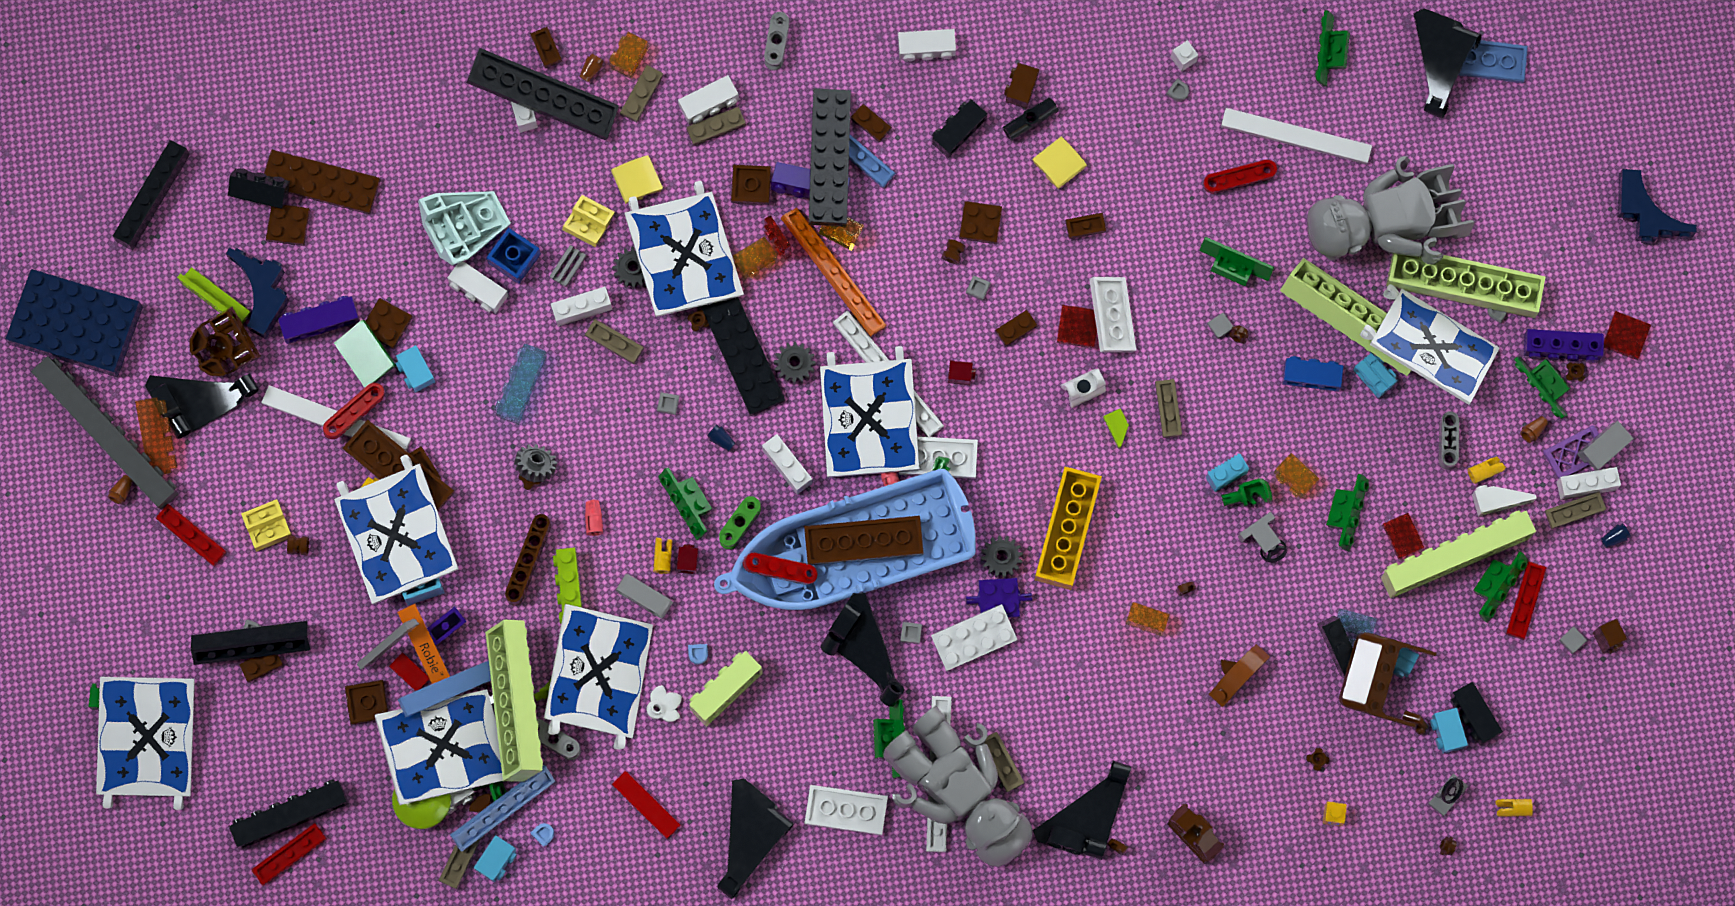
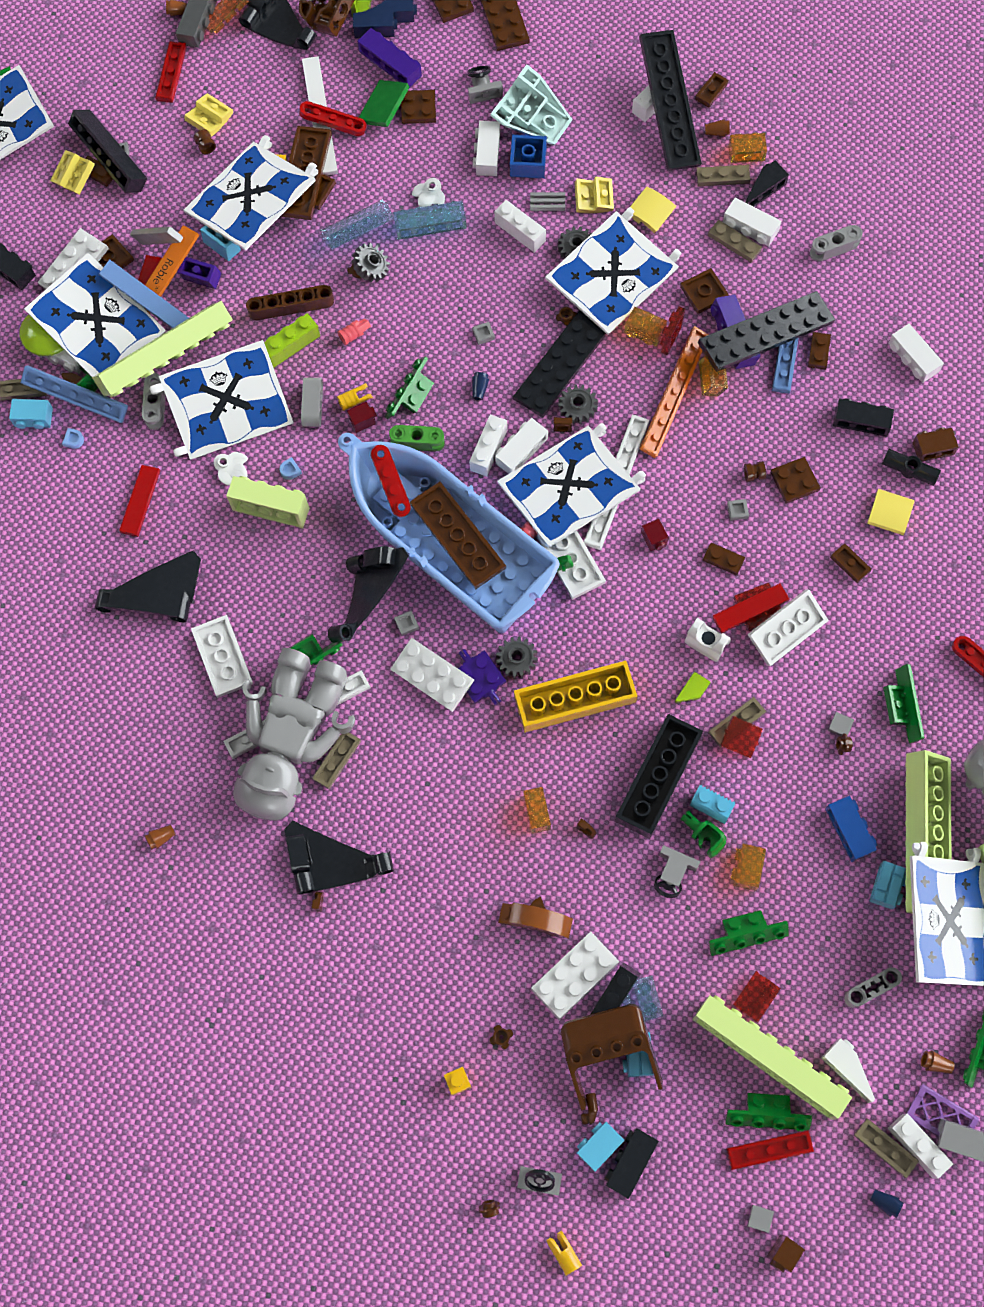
camera: 65 degrees right, 5 degrees down
(251, 688) = (72, 172): none -> light yellow slope
(357, 740) = (76, 249): none -> white plate
(401, 251) = (482, 88): none -> light grey piece
(415, 369) = (394, 142): medium azure brick -> none
(485, 453) = (356, 224): none -> clear light blue brick
(493, 371) = (429, 196): none -> white plate
(614, 341) = (507, 265): dark tan plate -> none
(676, 61) = (768, 182): none -> black slope
(805, 436) = (521, 446): none -> white brick
(806, 388) = (562, 424): none -> reddish brown tile
(1077, 334) = (750, 608): none -> red tile
(1178, 501) = (658, 776): none -> black brick
(1184, 413) = (741, 737): none -> clear red piece
(1195, 833) = (360, 970): reddish brown connector -> none
(1304, 670) = (575, 975): none -> white brick
(1485, 469) = (868, 1038): yellow hinge -> none

